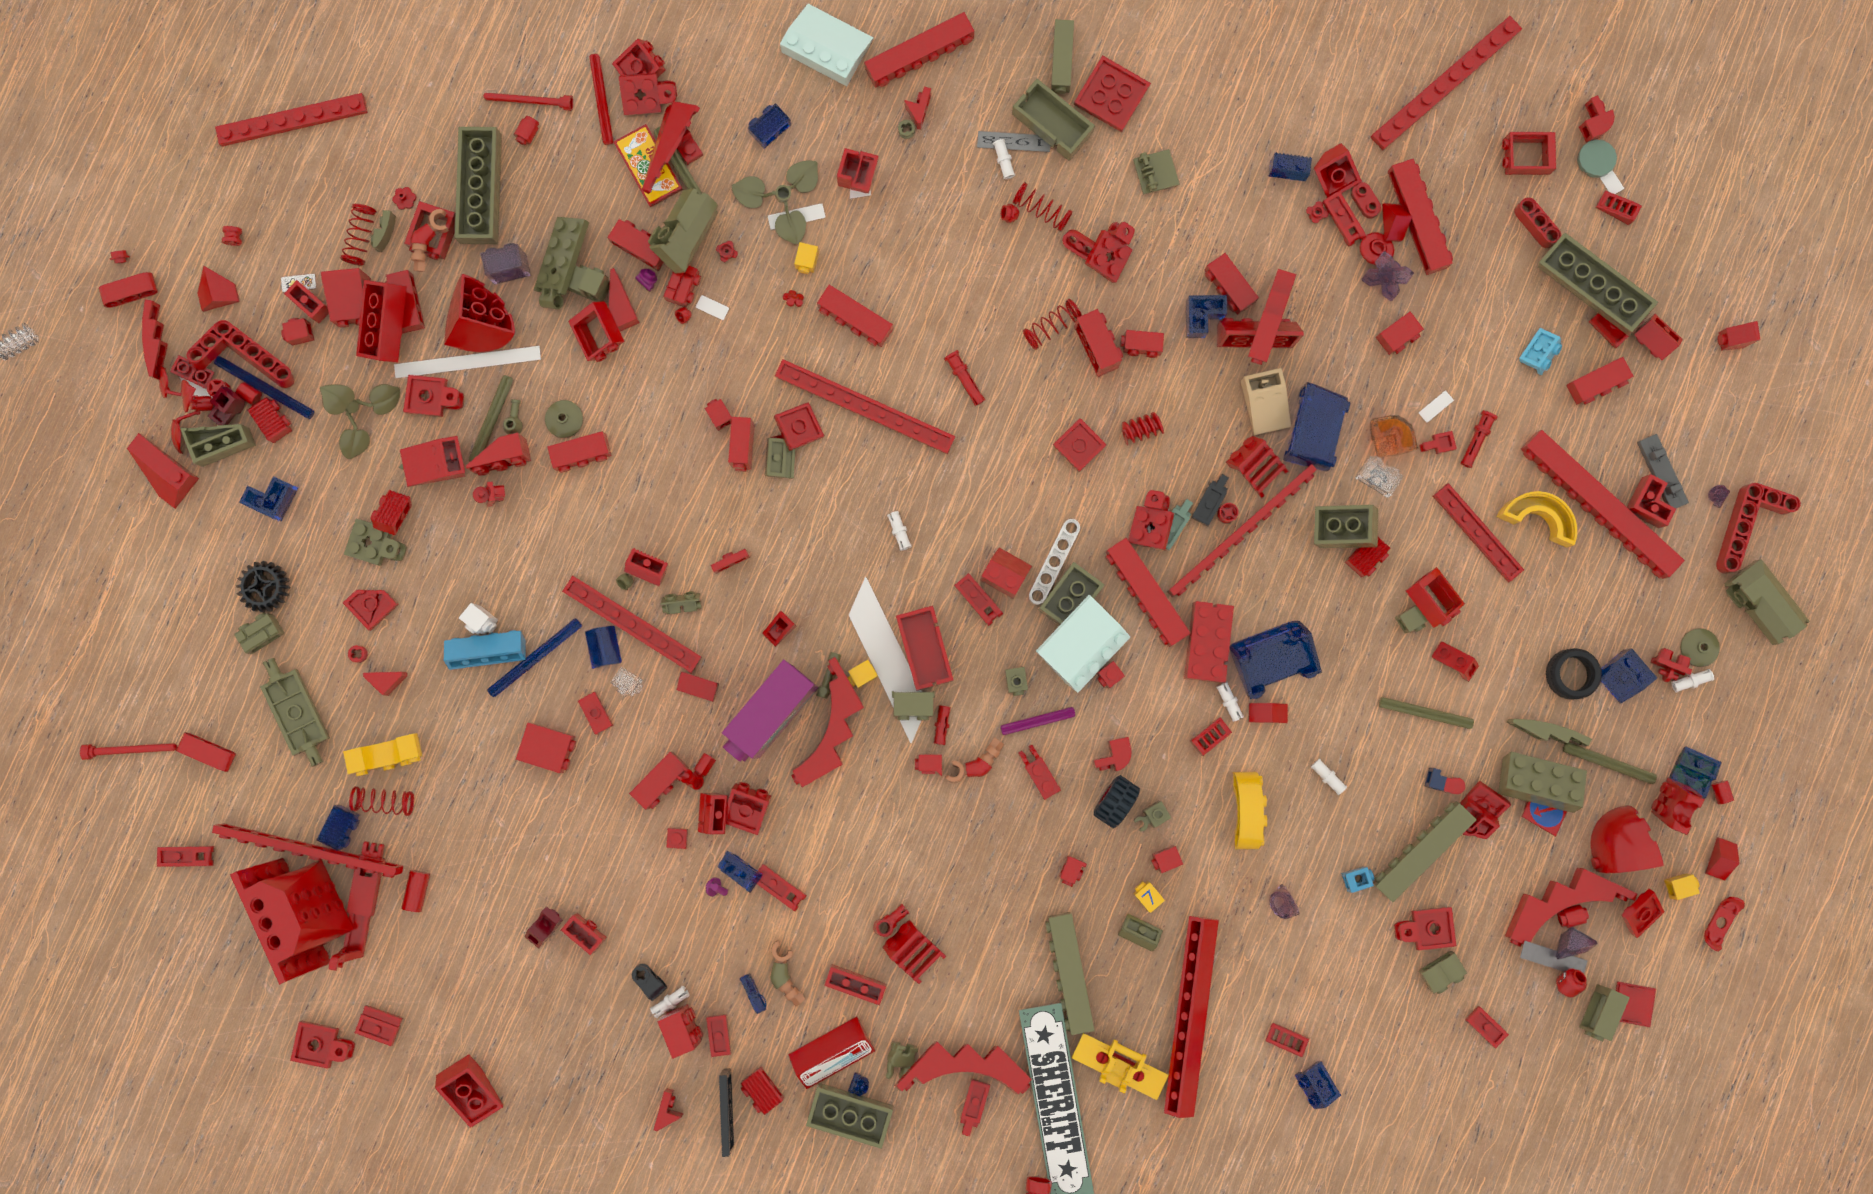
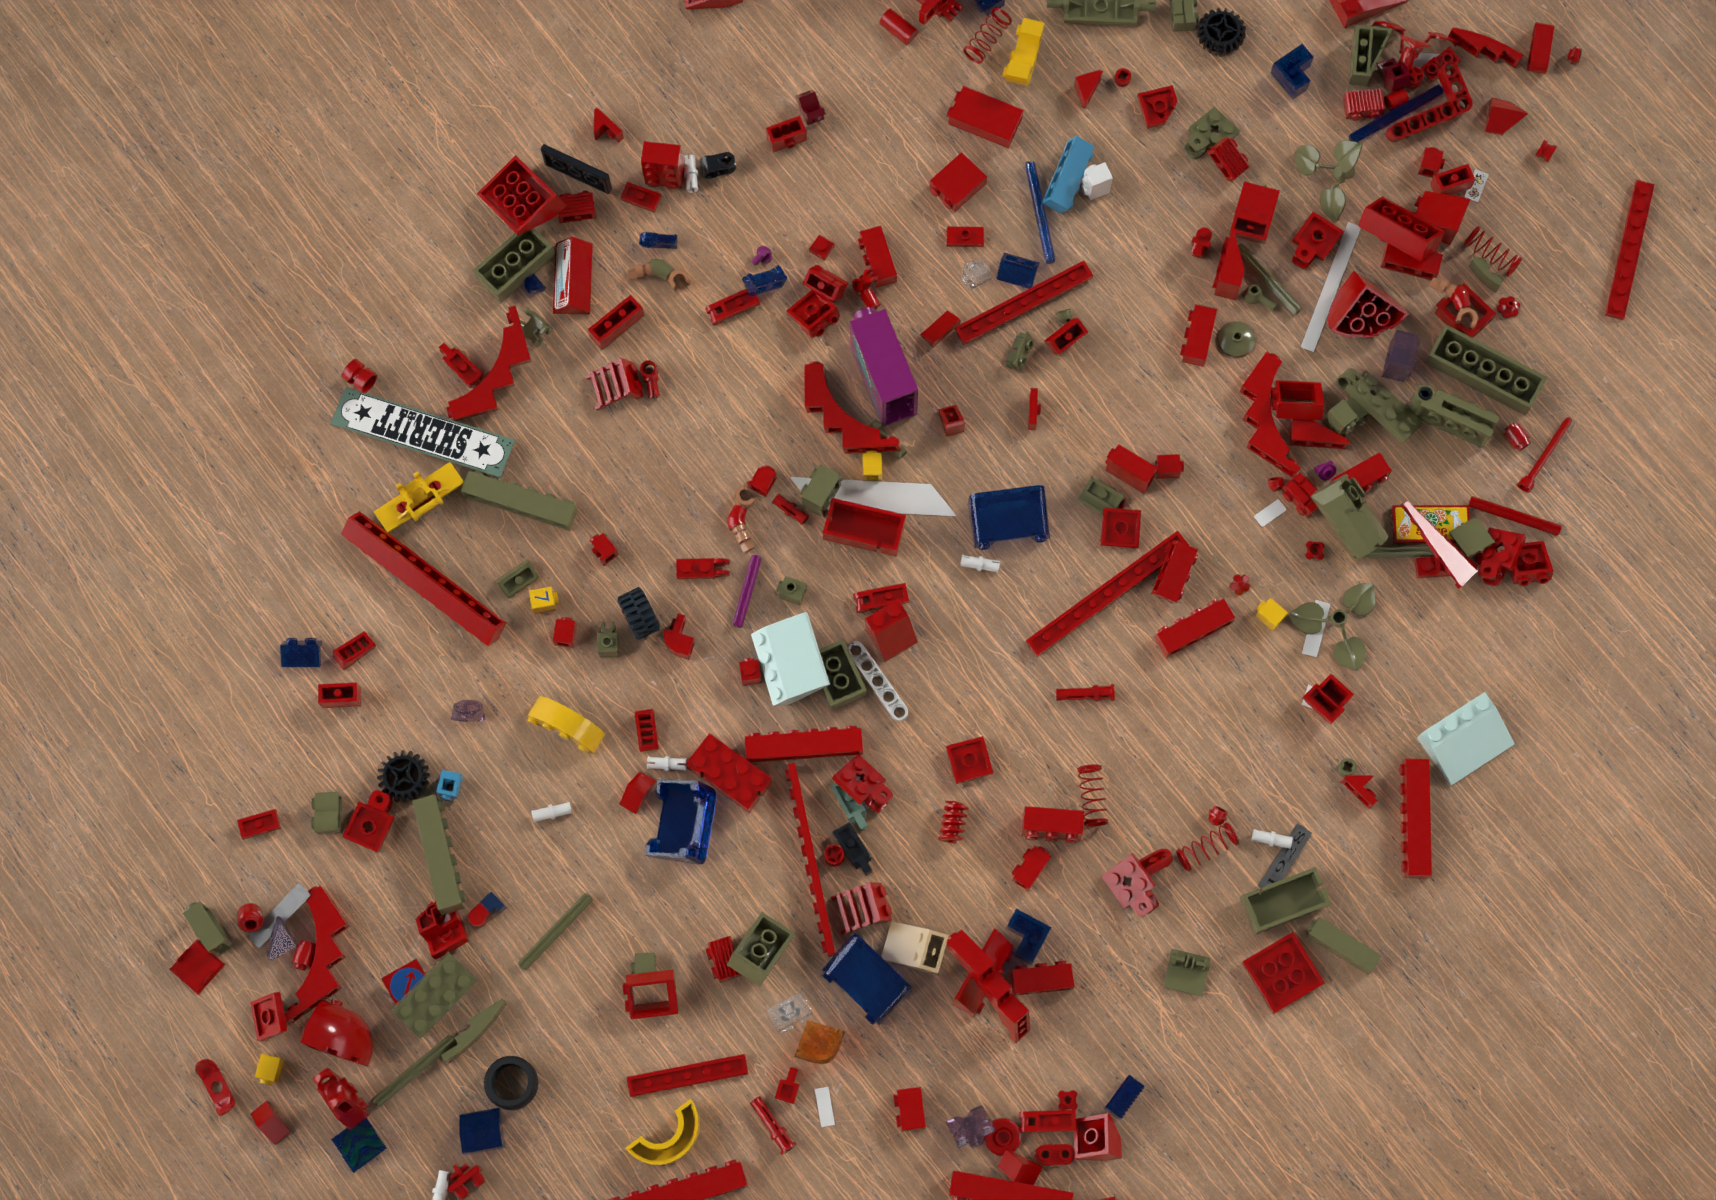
camera: 120 degrees right, 10 degrees down
(466, 759) = (985, 116): none -> red brick
(537, 190) = (1453, 415): none -> olive hinge
(643, 122) = (1471, 537): none -> olive piece
(646, 343) = (1266, 440): none -> red arch
(769, 125) = (1413, 646): clear blue brick -> none
(784, 1147) = (520, 197): none -> red slope
(815, 357) = (1175, 572): none -> red brick
(845, 526) = (1008, 515): none -> clear blue windscreen
(1338, 1025) = (339, 695): none -> red brick
(1373, 916) = (406, 770): none -> black gear
(1456, 659) = (584, 983): red bracket -> none
(1722, 792) = (326, 1158): red piece -> none

